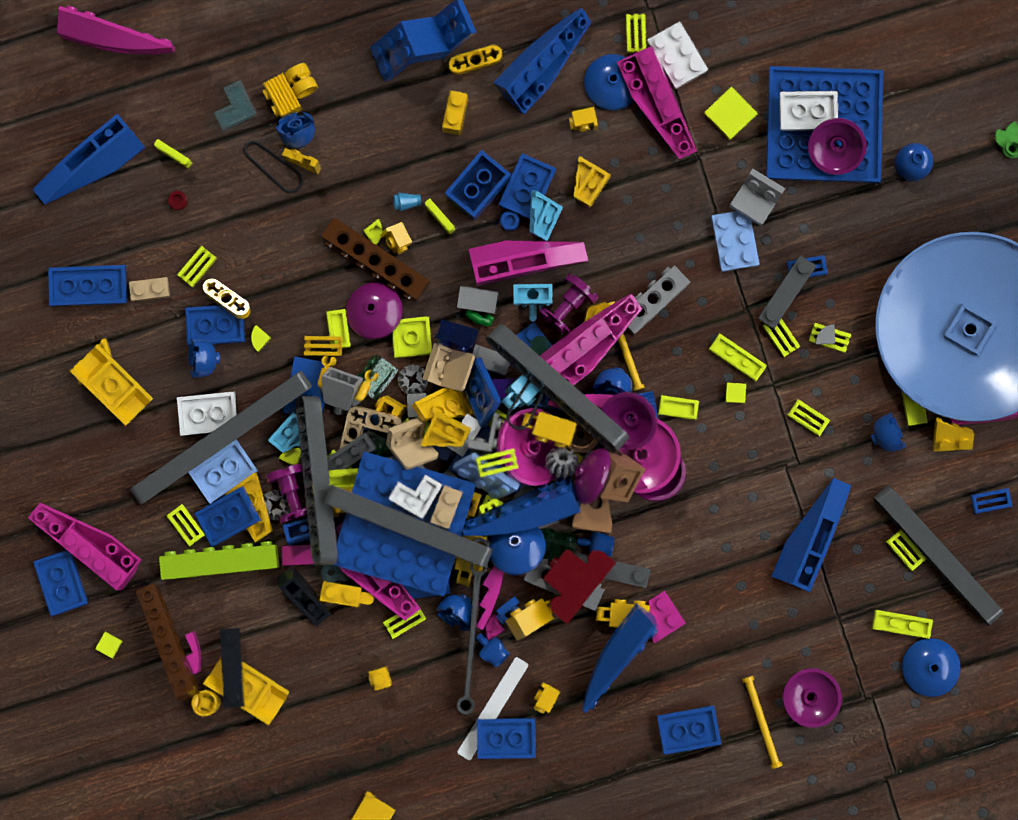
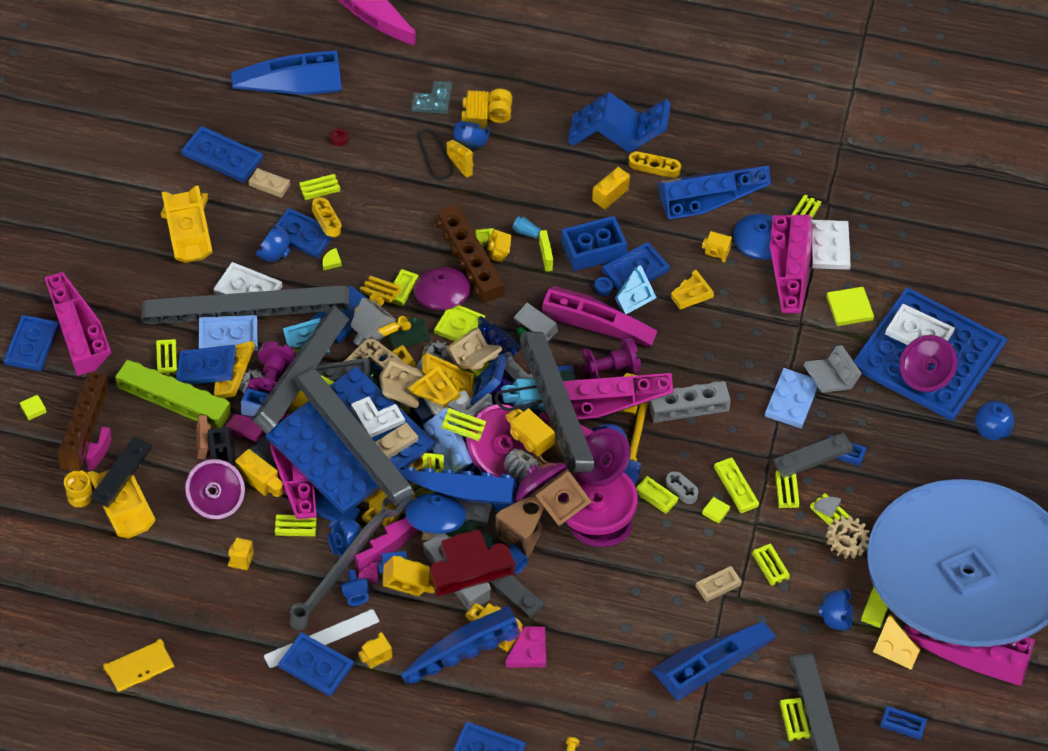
camera: 30 degrees right, 30 degrees down
(173, 154) = (359, 103): neon yellow tile -> none
(268, 580) = (203, 443): none -> nougat plate
(329, 639) = (226, 483): none -> magenta dish
(532, 295) = (583, 336): medium azure piece -> none
(694, 392) = (680, 488): none -> light grey beam
(778, 464) = (718, 584): none -> tan plate
(867, 356) = (847, 537): none -> tan gear

